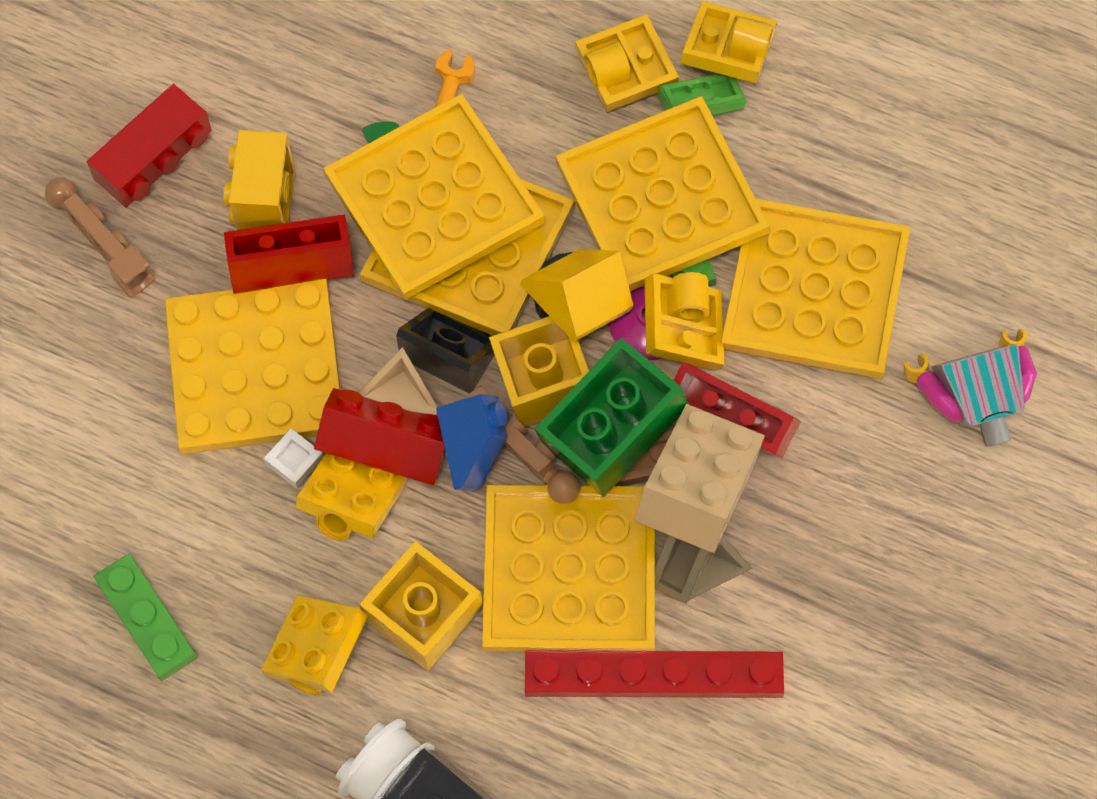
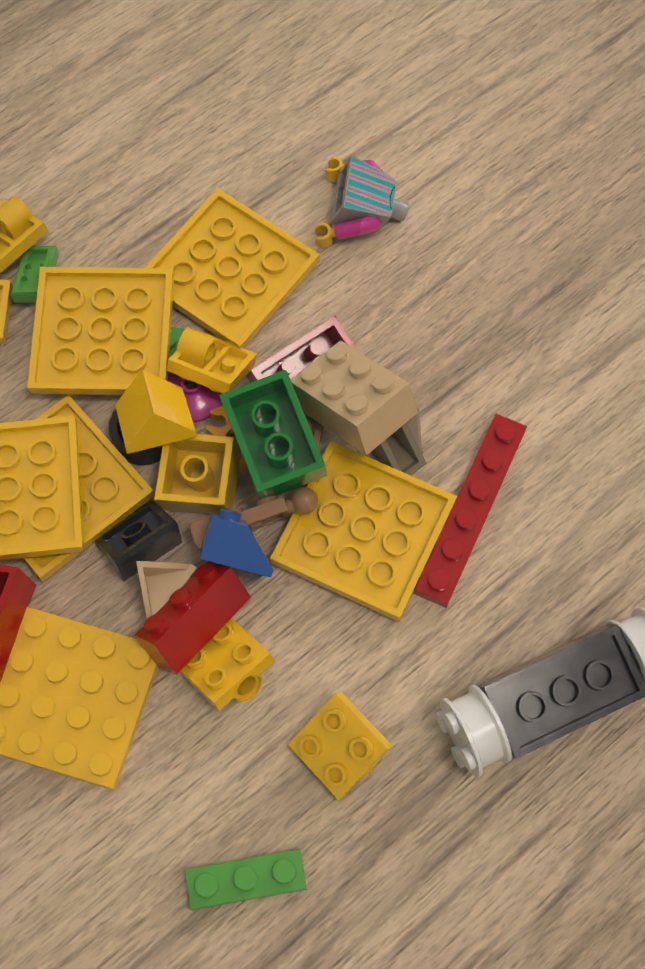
camera: 70 degrees left, 0 degrees up
(293, 458) = (170, 697): white plate -> none
(421, 605) = (349, 647): yellow brick -> none

